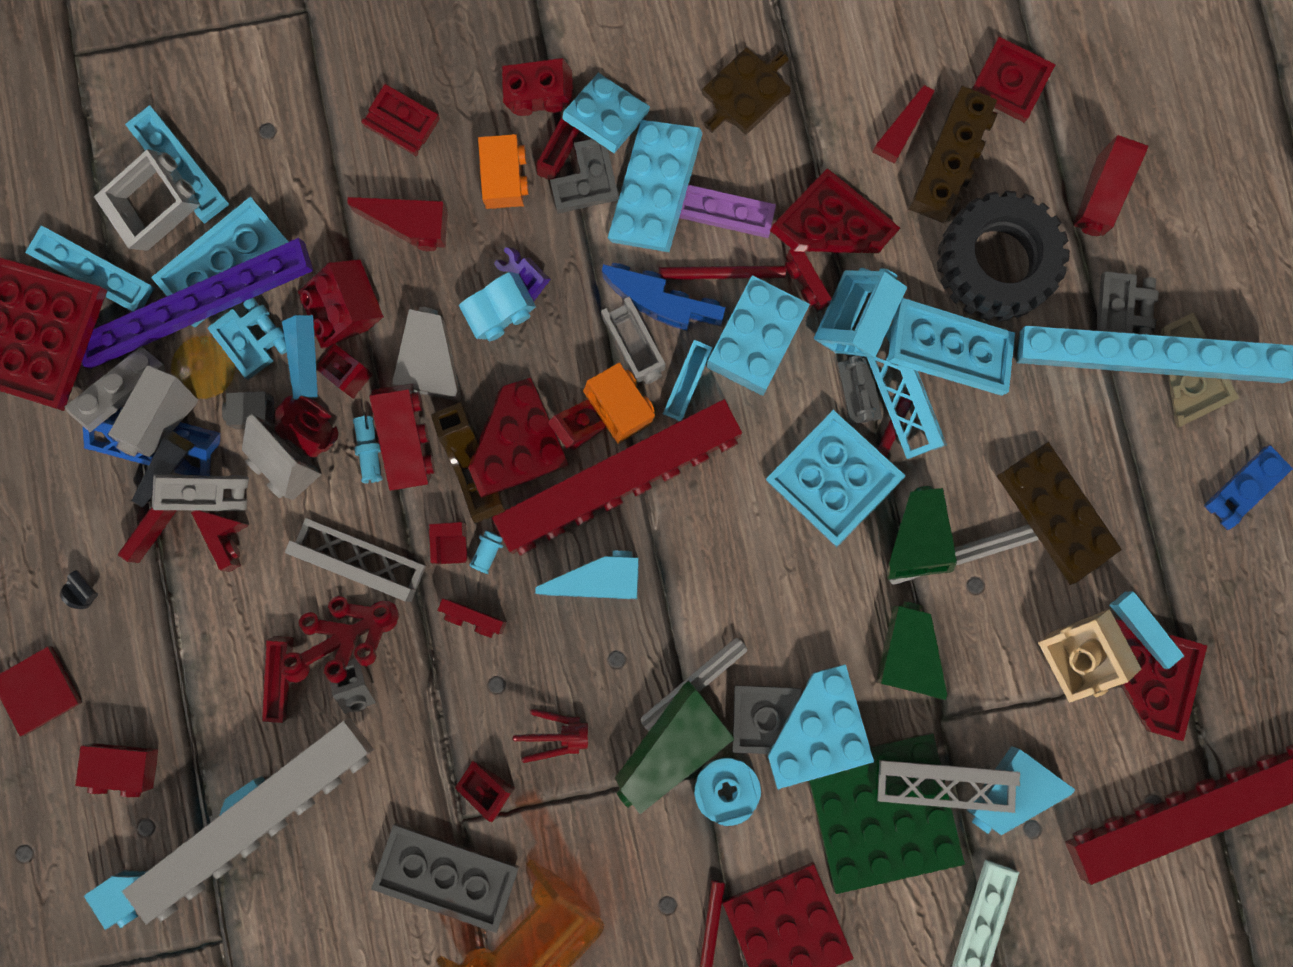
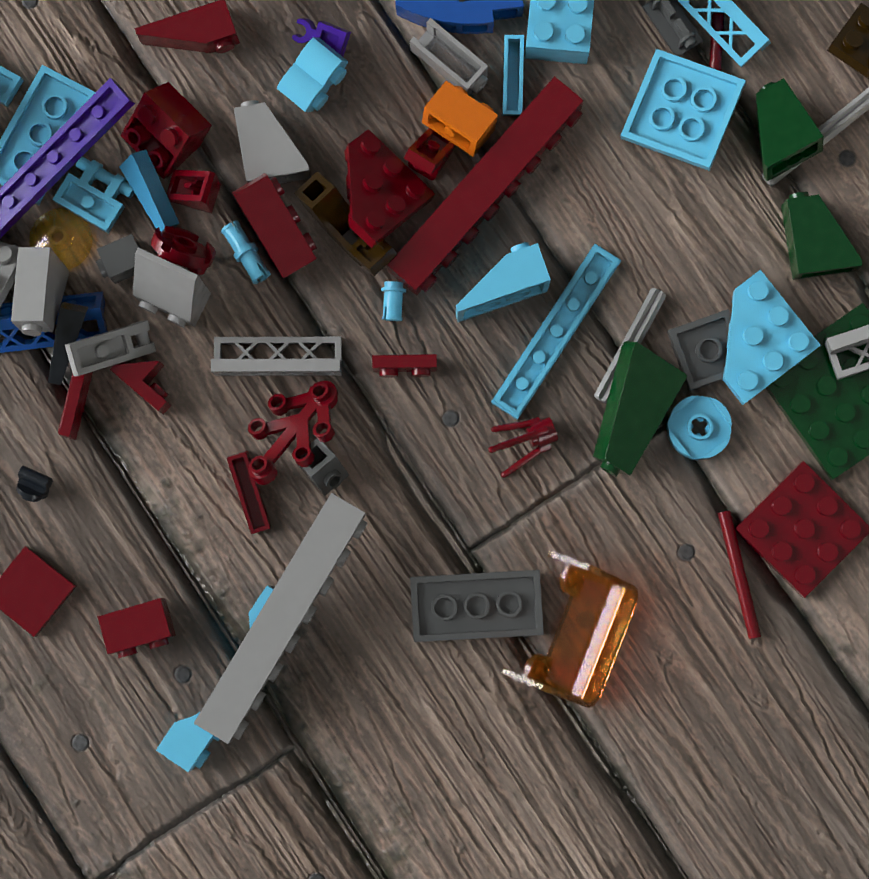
camera: 20 degrees left, 0 degrees up
(448, 543) = (355, 306): dark red panel -> none
(484, 790) = (479, 513): dark red slope -> none
(629, 642) = (556, 331): none -> medium azure tile

